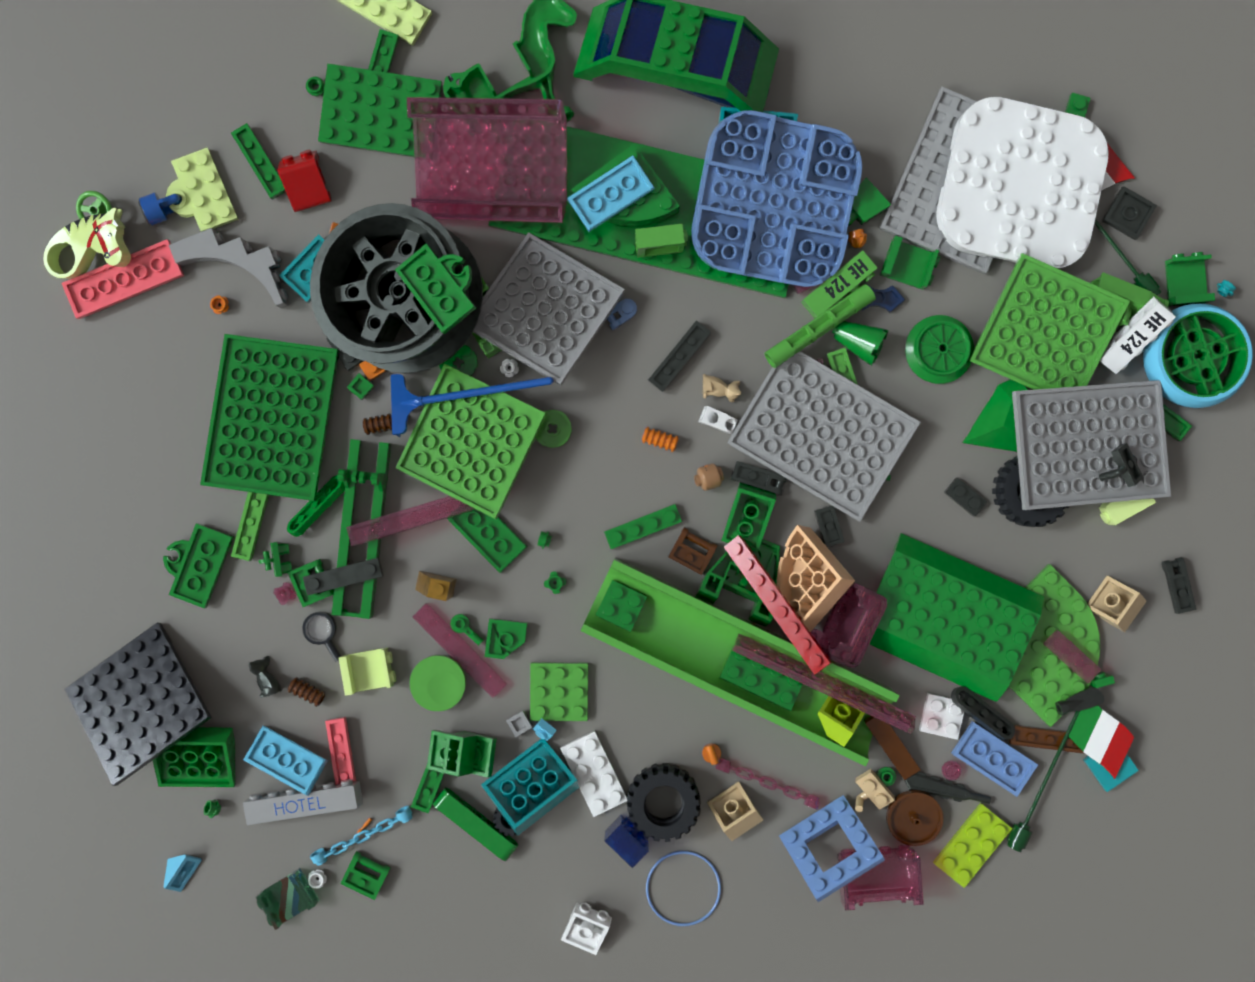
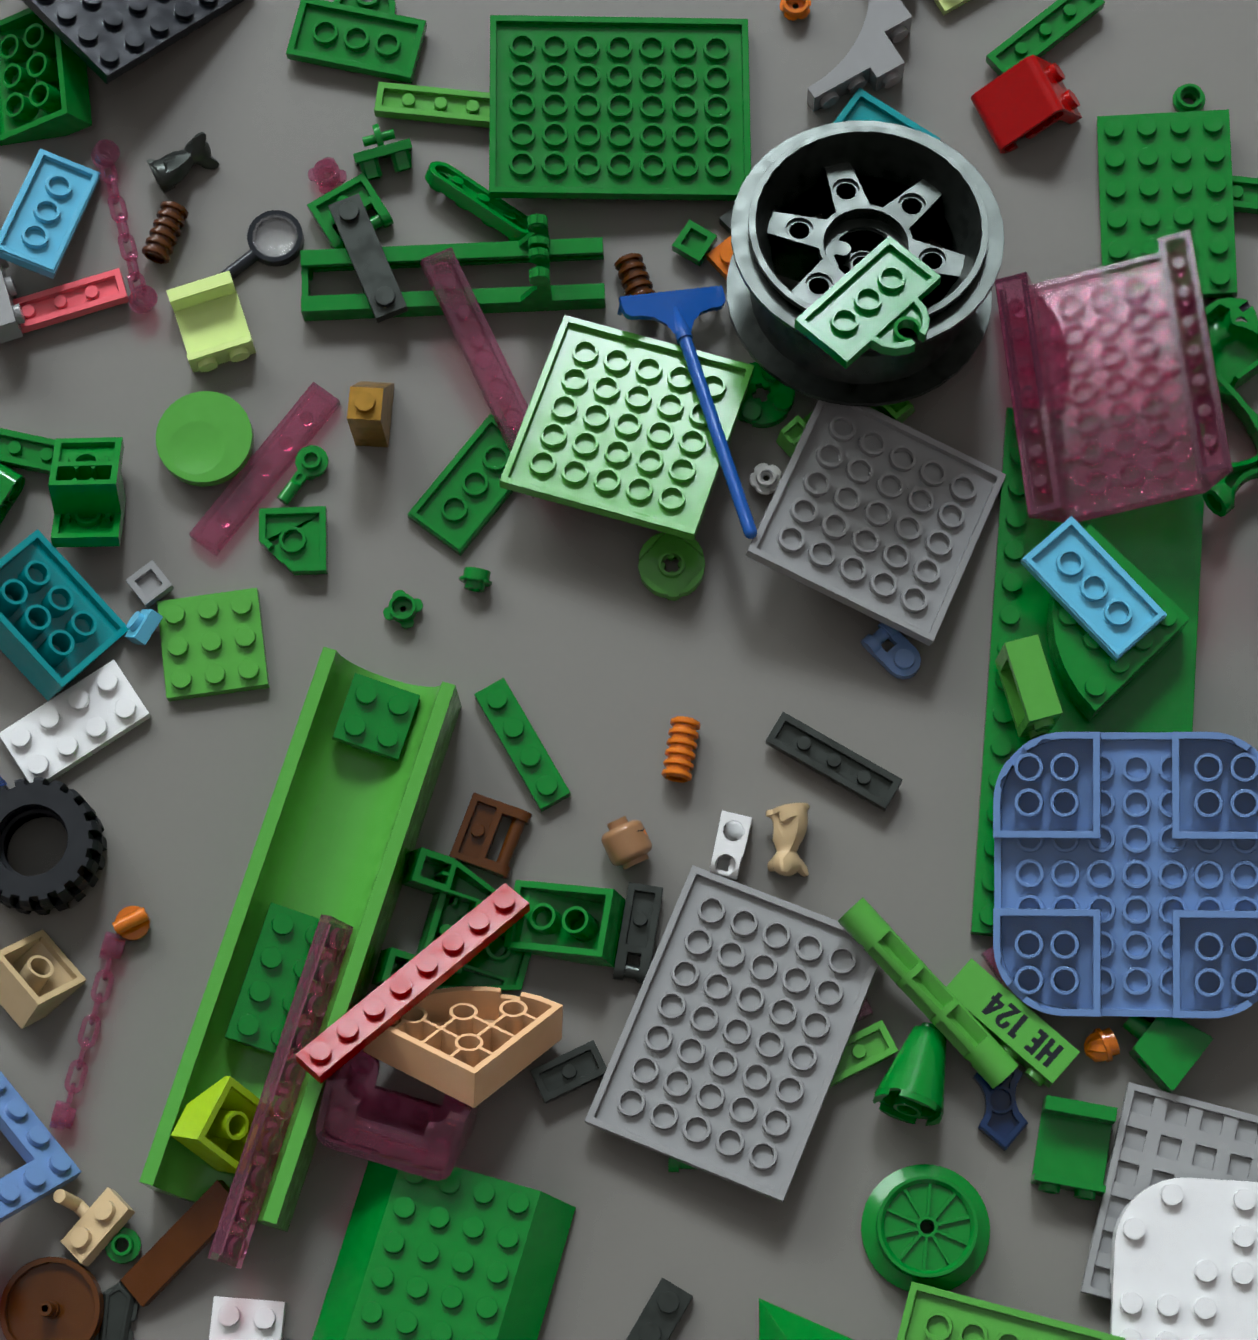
camera: 90 degrees right, 15 degrees down
(341, 709) = (142, 292): none -> clear pink piece

